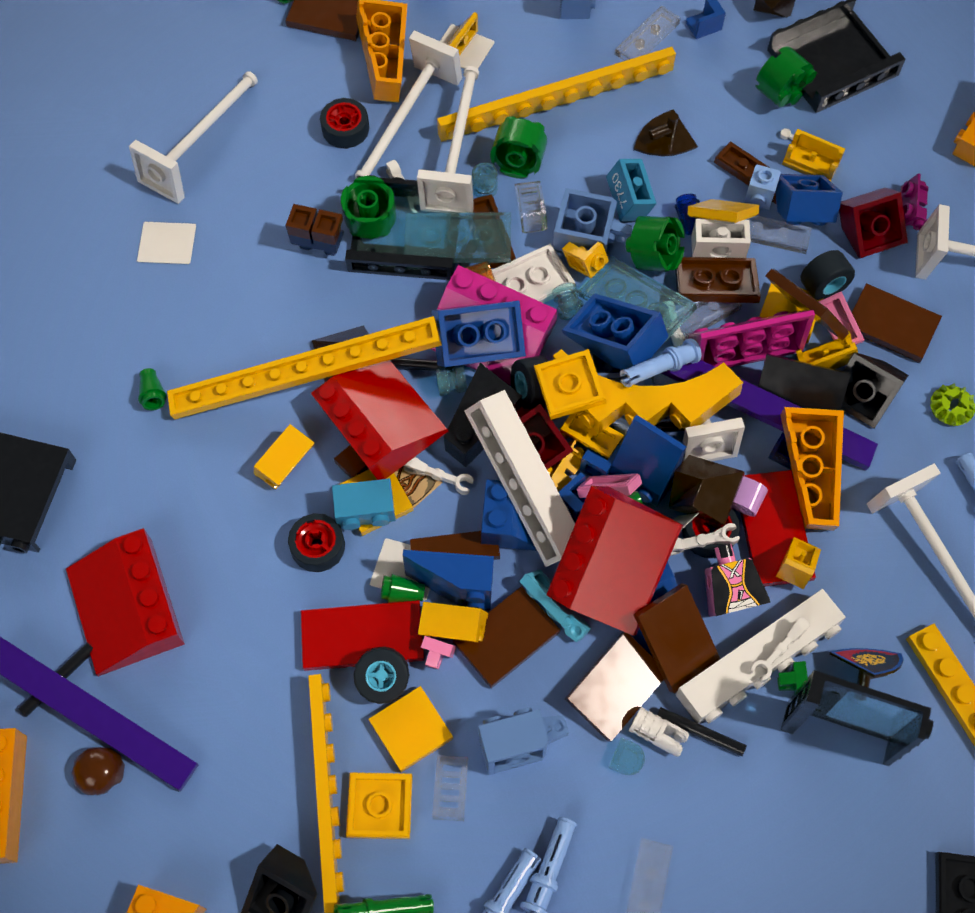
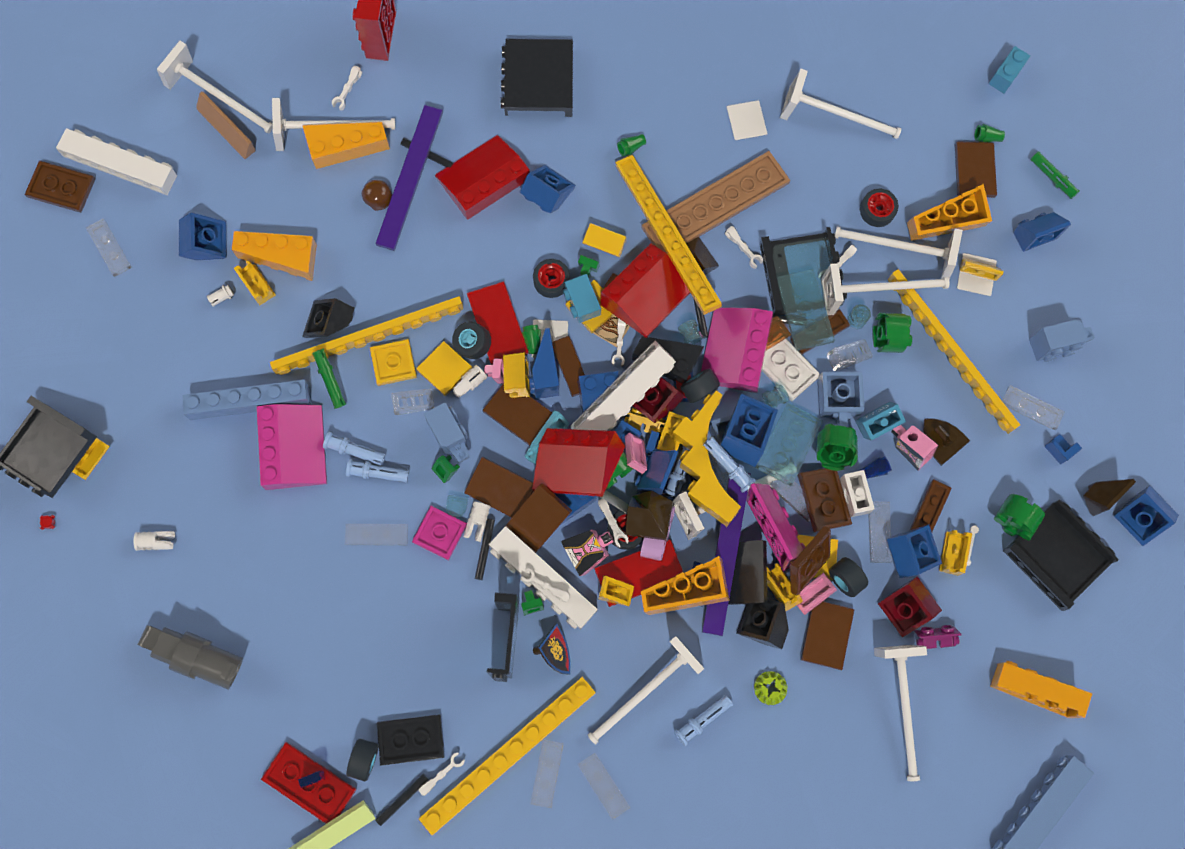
camera: 70 degrees right, 10 degrees up
(179, 516) = (546, 188): none -> blue slope
(272, 295) = (724, 199): none -> medium nougat plate
(314, 488) = (587, 265): none -> green tile
(315, 229) = (778, 210): reddish brown hips -> none
(327, 296) = (733, 235): none -> white piece
(368, 207) = (814, 246): green brick -> none
(442, 694) = (465, 384): none -> white hinge
(479, 333) = (724, 338): blue slope -> none
(569, 761) = (444, 468): none -> green tile
(570, 384) = (695, 405): yellow tile -> none
(586, 261) = (810, 403): yellow bracket -> none
(663, 793) = (439, 533): none -> dark pink tile
(673, 160) = (914, 445): none -> bright pink torso
(723, 210) = (880, 490): yellow tile -> none
(762, 186) = (913, 516): light blue bracket -> none

